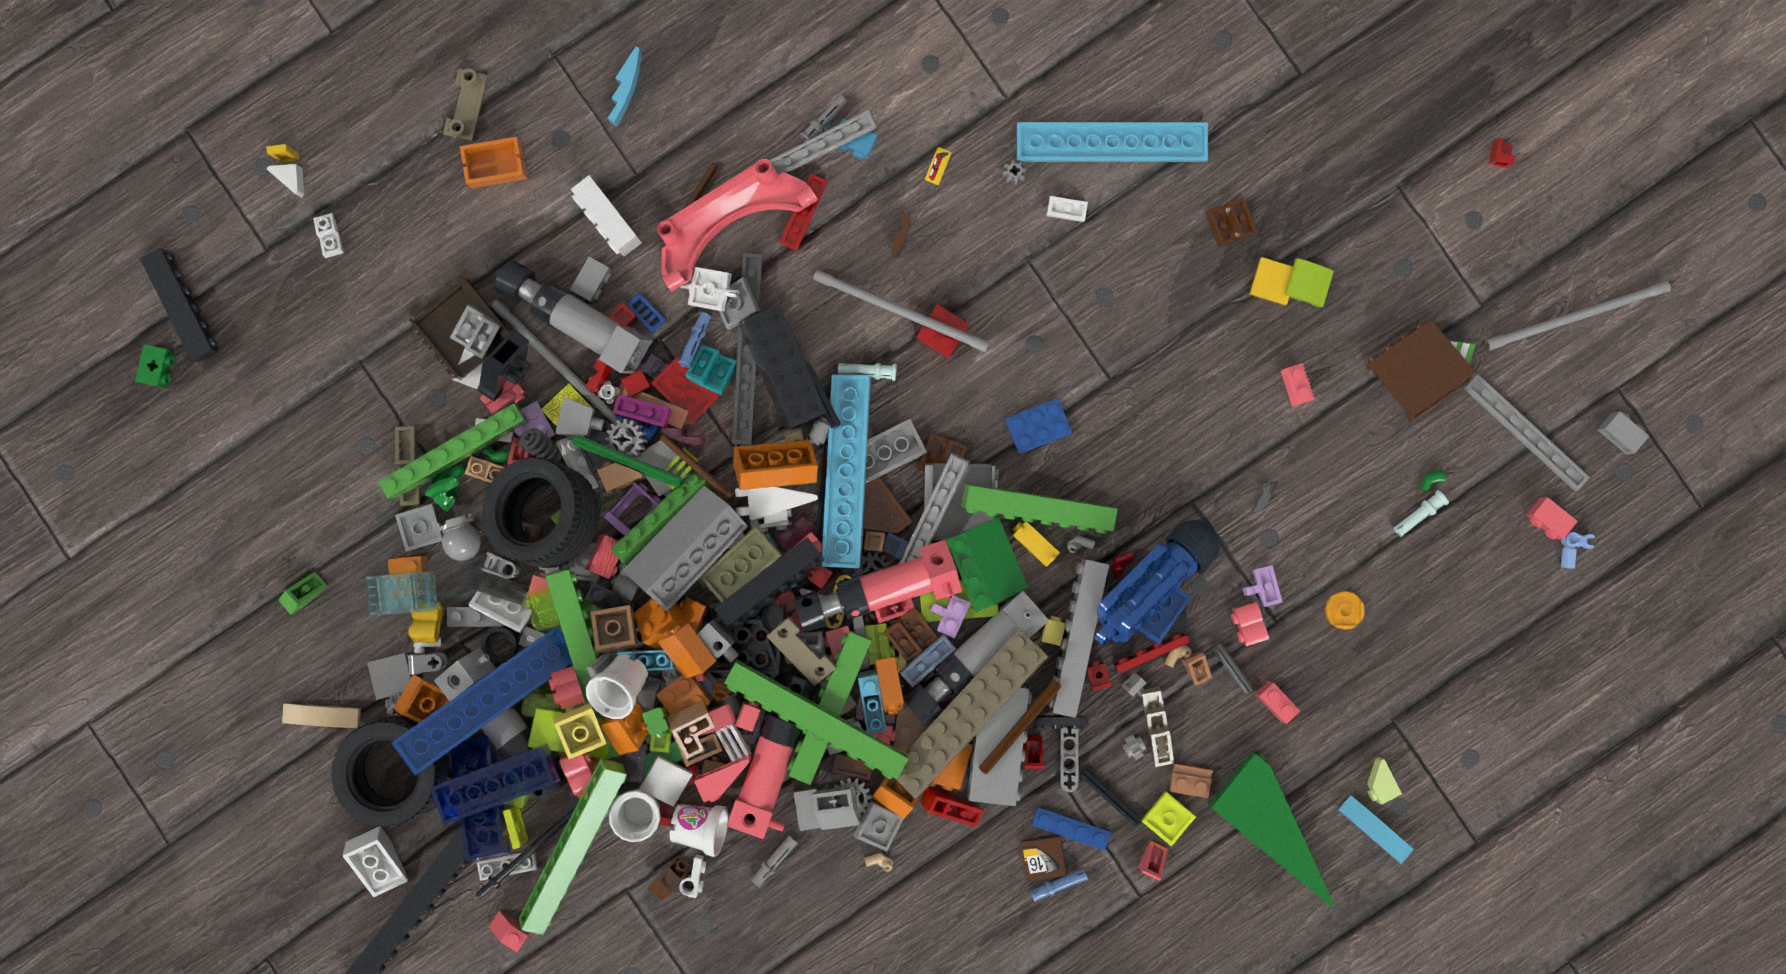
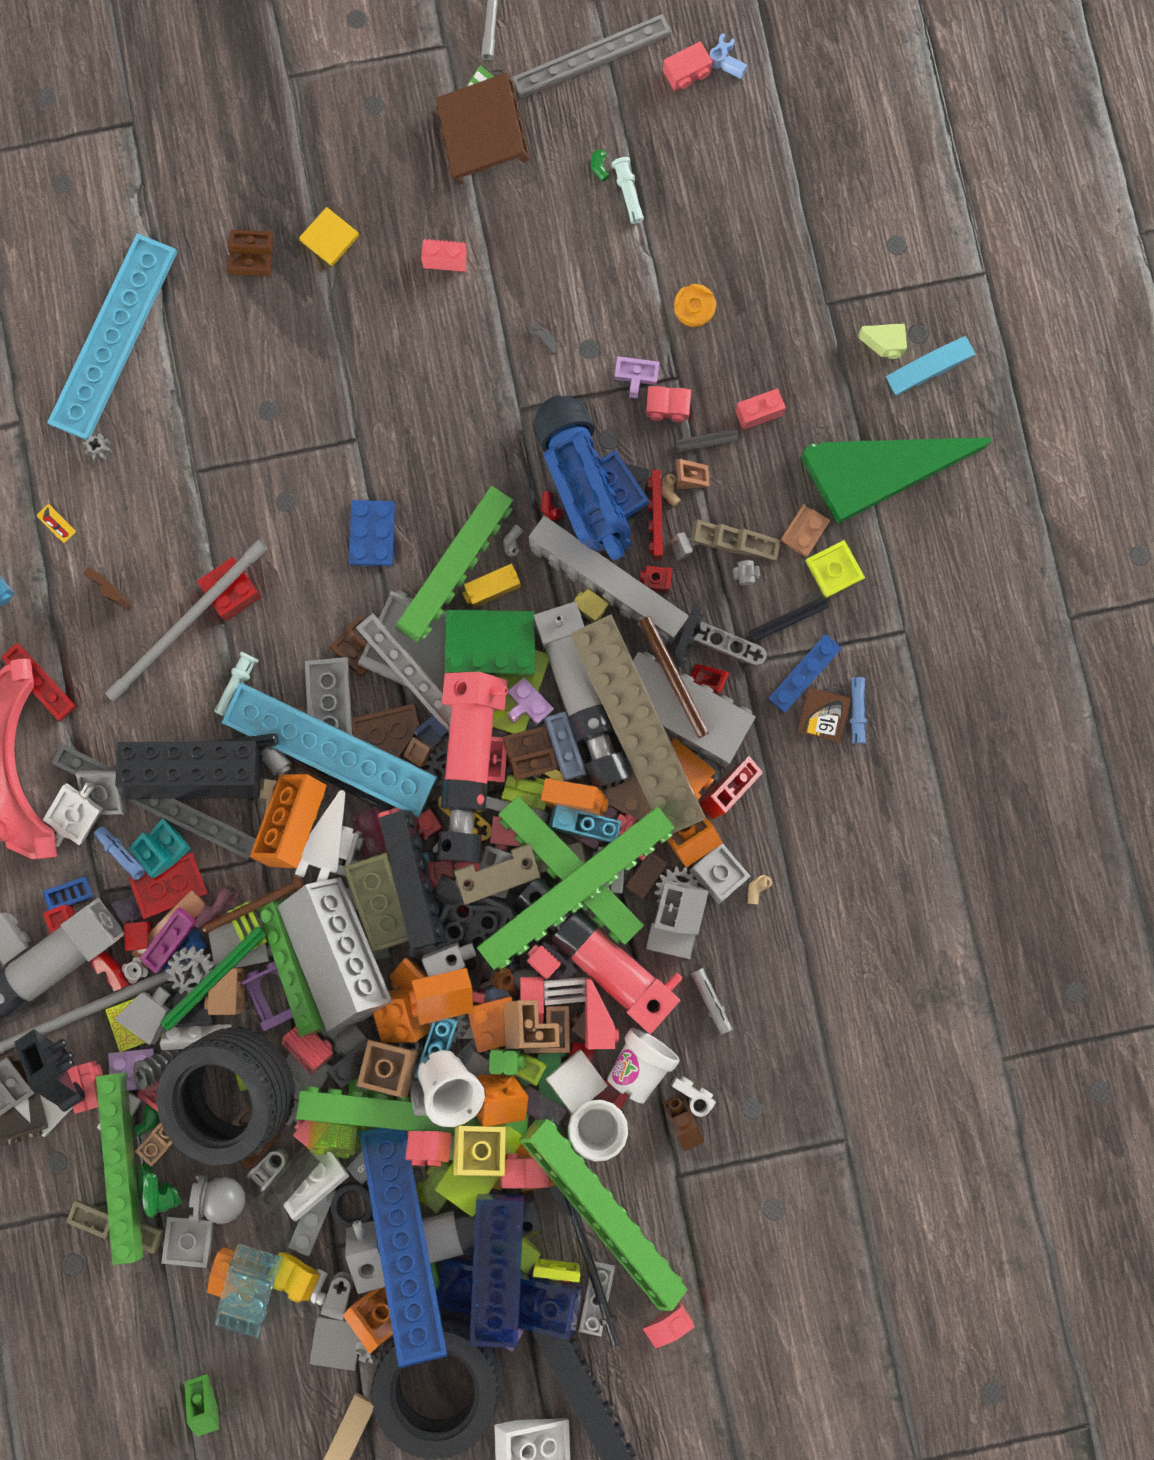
camera: 65 degrees left, 5 degrees down
(1067, 209) = (160, 410): white plate -> none
(1153, 860) = (872, 601): coral slope -> none
(1309, 282) = (346, 201): lime slope -> none

